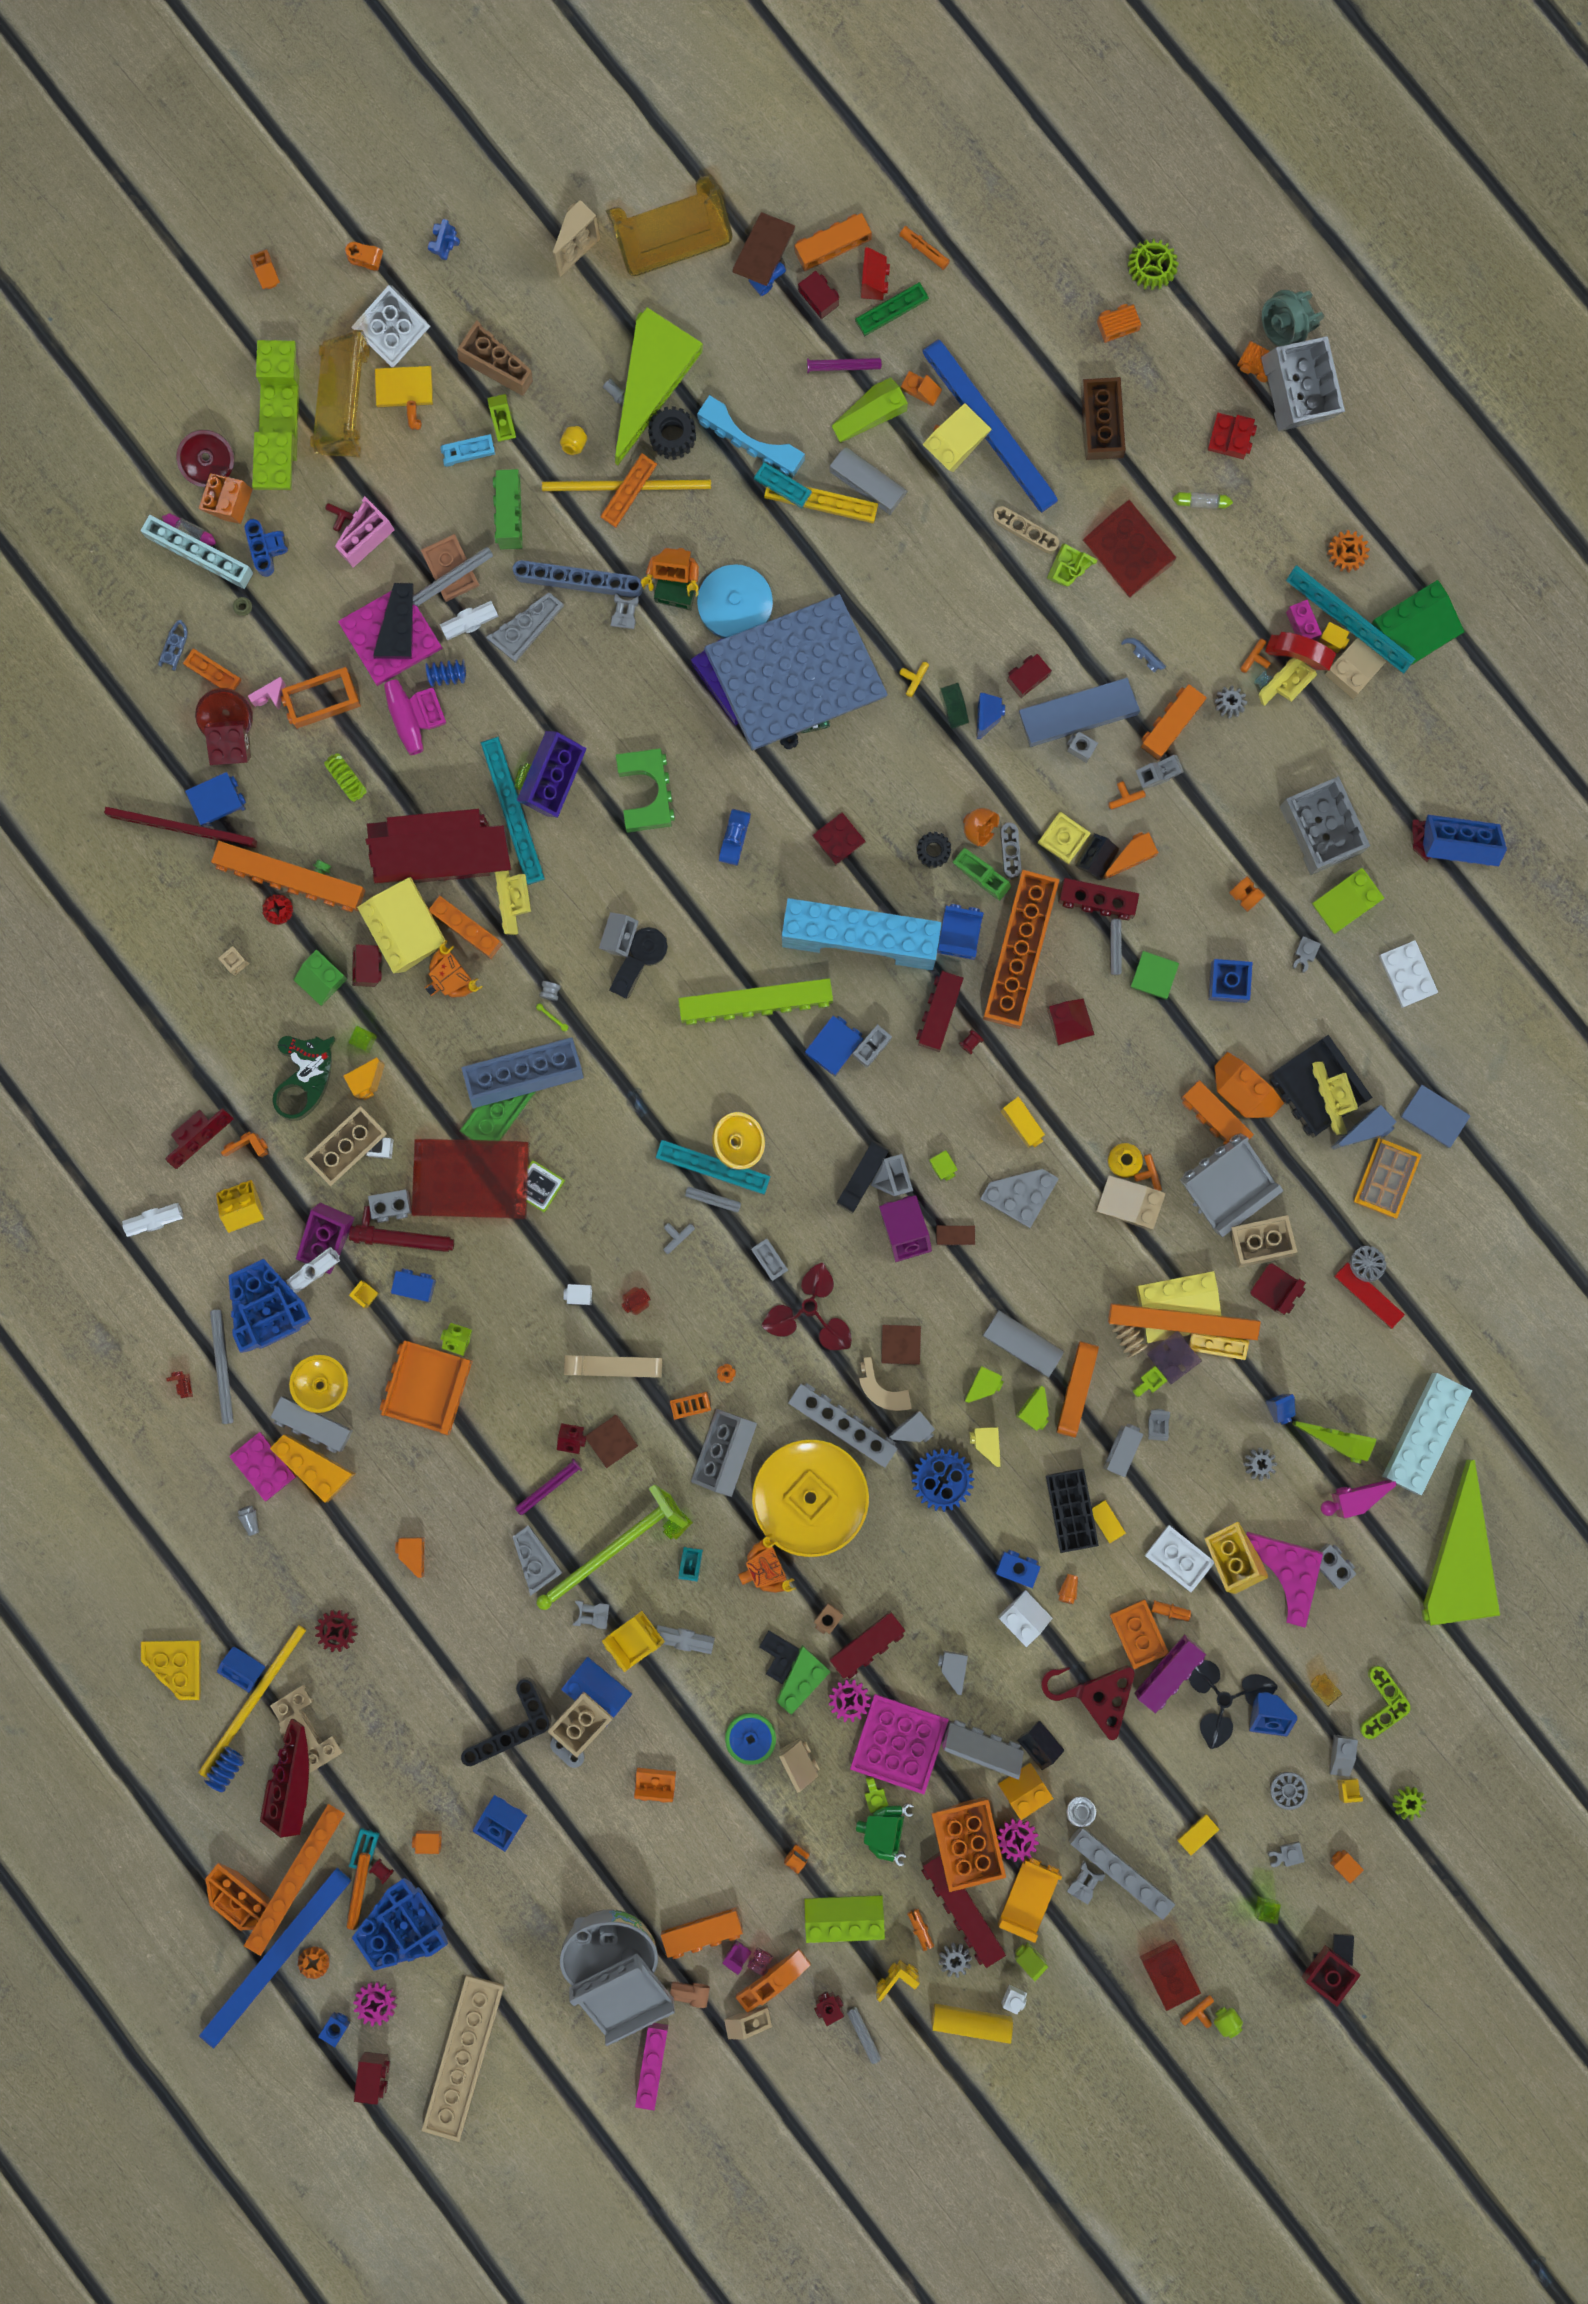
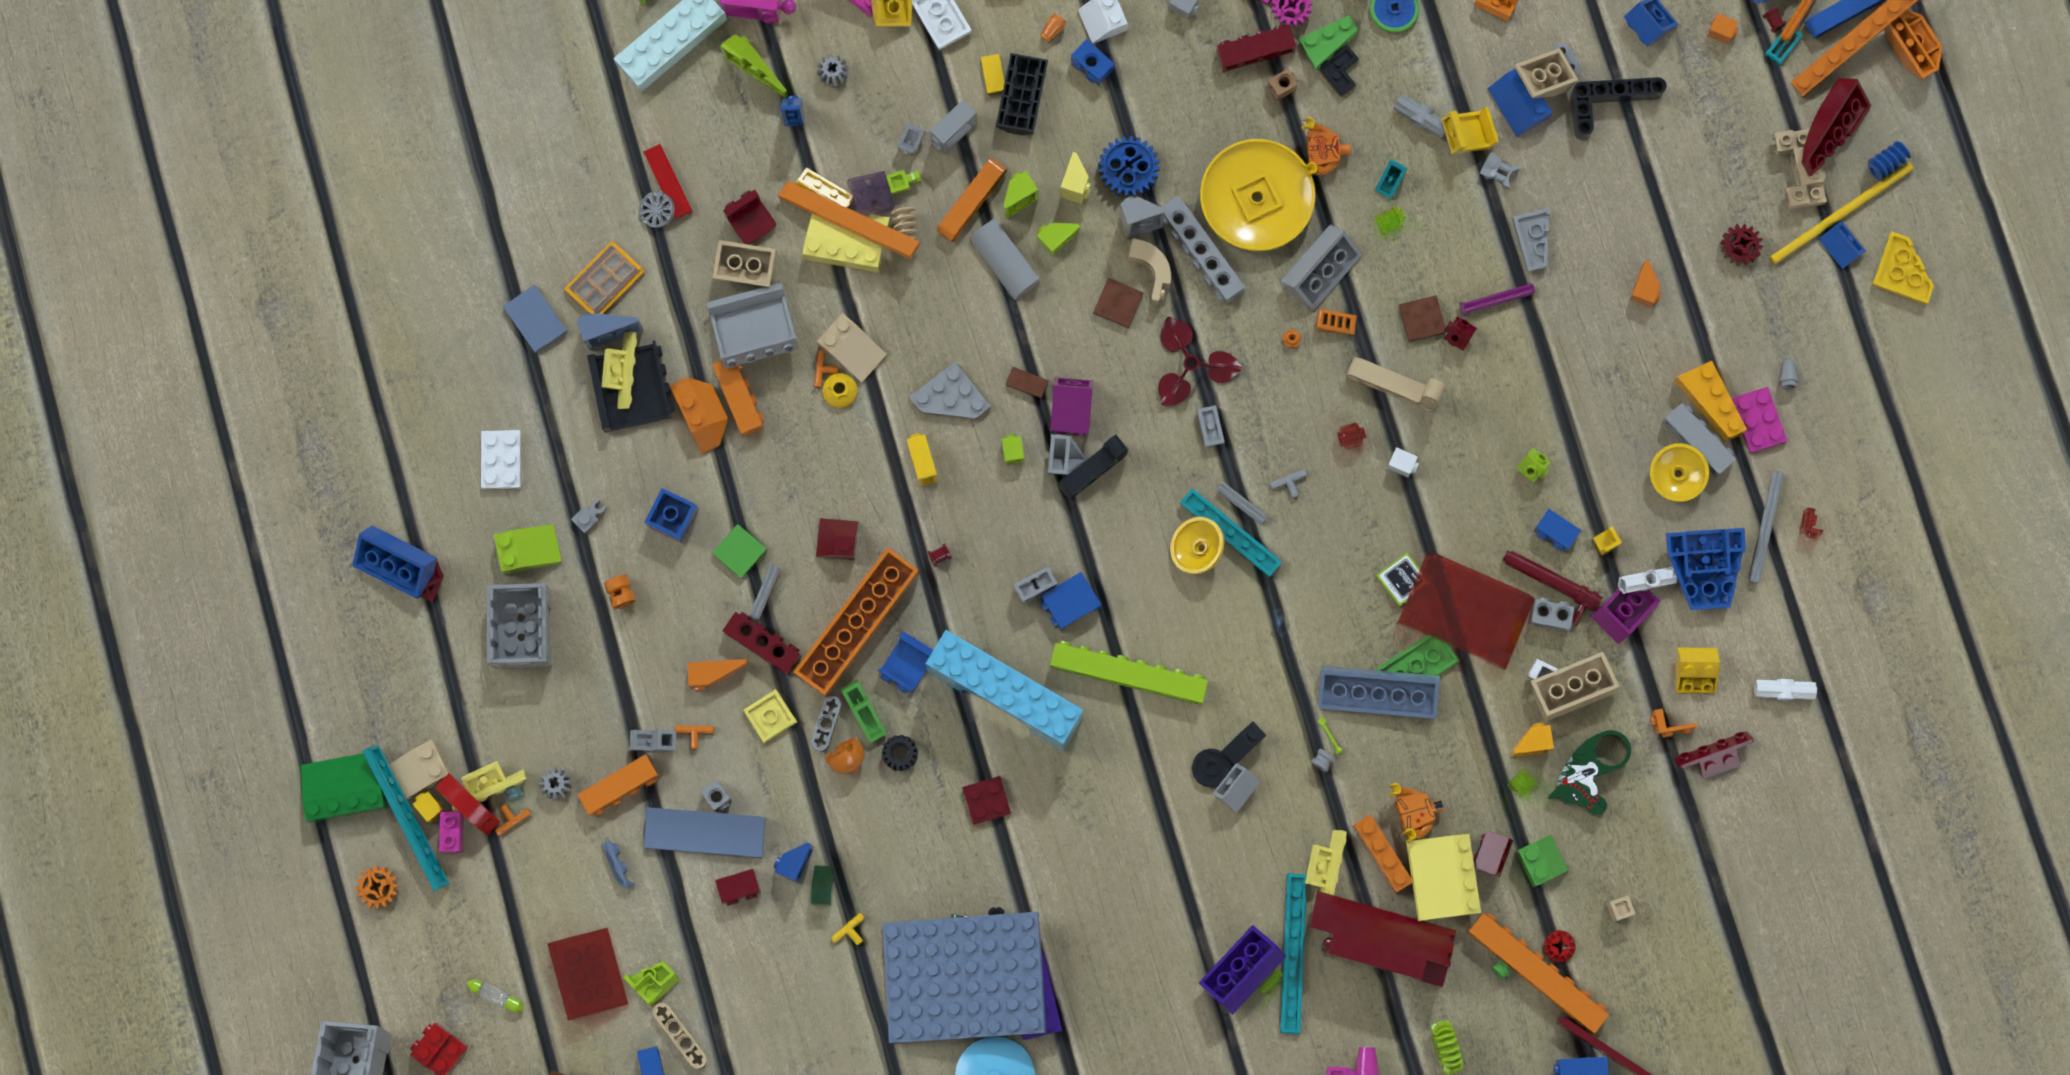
camera: 160 degrees left, 5 degrees down
(425, 1387) = (1578, 433): orange panel -> none
(650, 764) = (1140, 944): bright green arch -> none
(667, 1508) = (1394, 233): lime piece -> none
(734, 837) = (1087, 840): blue piece -> none
(940, 1011) = (957, 594): dark red brick -> none
(1097, 856) = (746, 685): black panel -> none

